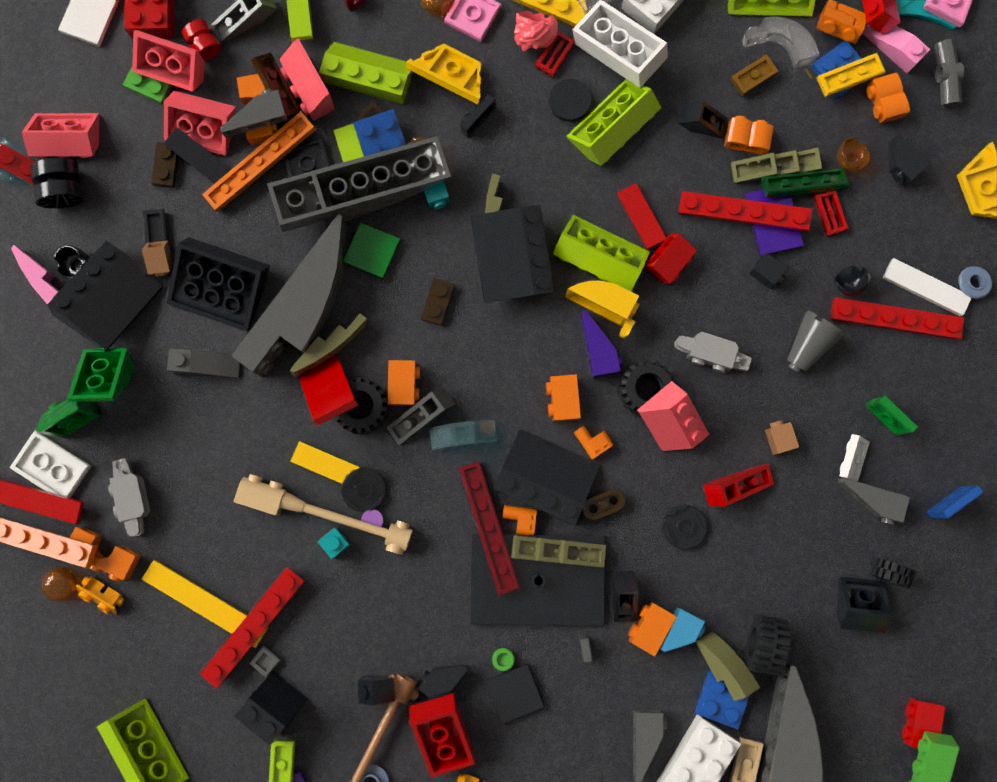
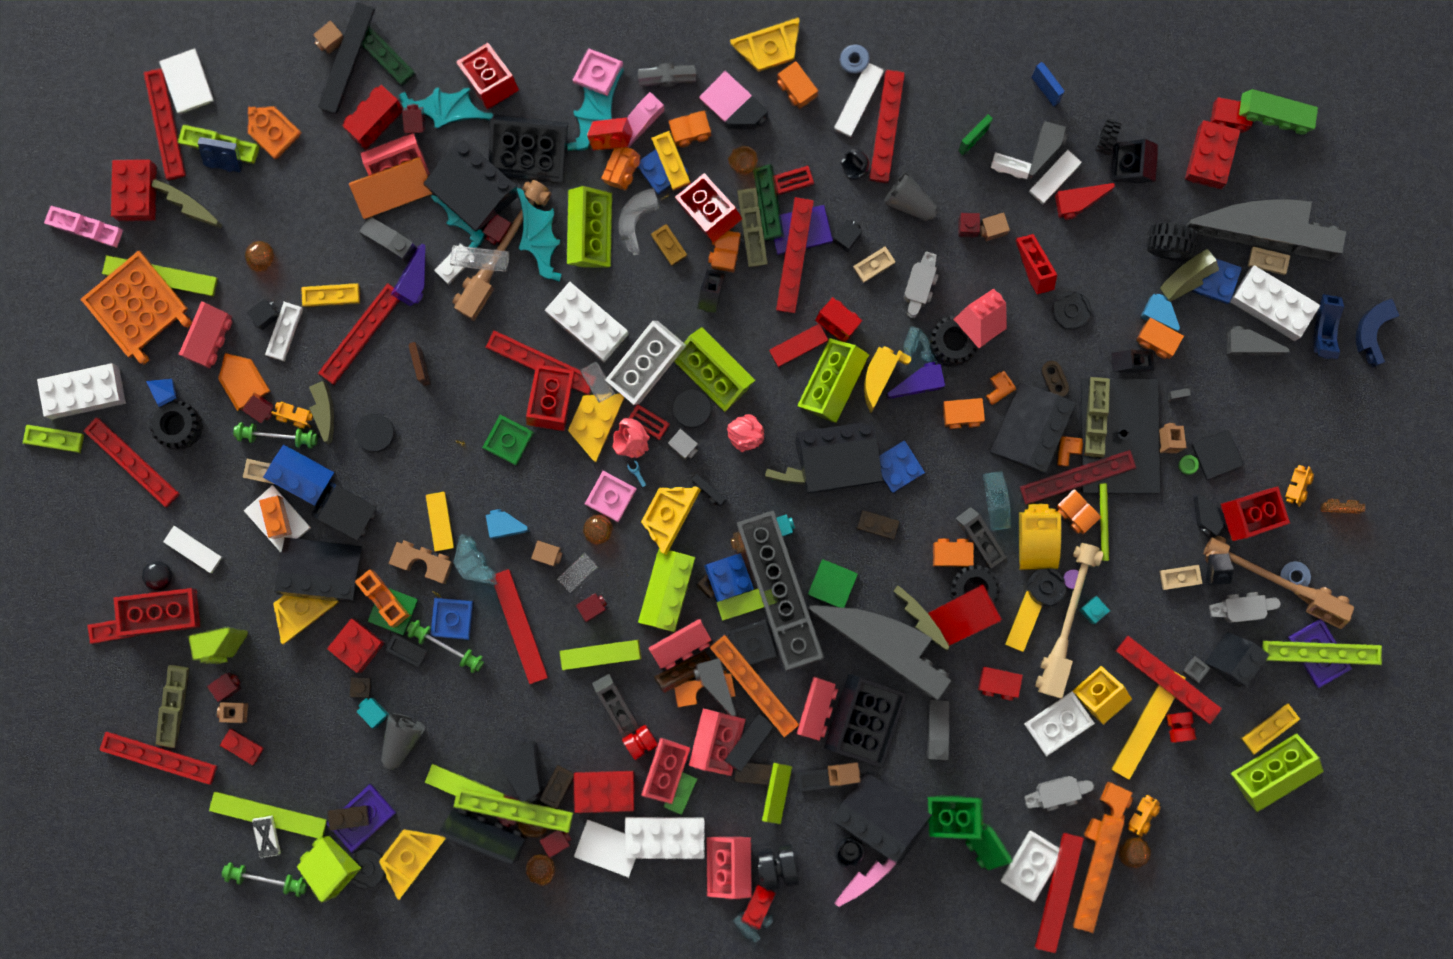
camera: 80 degrees left, 0 degrees up
(96, 64) = (664, 837): none -> white brick
(141, 186) = (777, 793): none -> lime tile
(194, 746) = (1270, 728): none -> yellow tile
(197, 640) = (1180, 734): none -> red wheel
(208, 501) = (1059, 723): none -> white tile
(230, 227) = (817, 709): none -> coral slope
(237, 550) = (1102, 695): none -> yellow slope
(254, 433) = (1000, 683): none -> red brick
(333, 719) = (1245, 608): none -> light grey hinge
(371, 645) = (1180, 577): none -> tan plate
(420, 481) = (1039, 537): none -> yellow piece
(437, 557) = (1104, 522): none -> lime bar
(448, 527) = (1078, 512): none -> orange brick
(499, 41) = (636, 471): none -> medium azure hand
(503, 325) = (899, 466): none -> blue plate
(528, 88) = (683, 445): none -> light grey brick
(534, 646) = (1172, 438): none -> medium nougat brick
(541, 156) = (745, 433): none -> coral hair
(645, 342) = (913, 337): none -> clear light blue plant
(735, 300) = (874, 264): none -> tan plate
(783, 408) = (969, 225): none -> dark red brick
(797, 112) = (708, 208): none -> red brick
(814, 534) = (1075, 201): none -> red slope
(842, 511) = (1055, 177): none -> white tile
(874, 698) = (1212, 154): none -> red brick
(928, 136) = (725, 96): none -> bright pink tile
(942, 217) = (797, 85): none -> orange brick

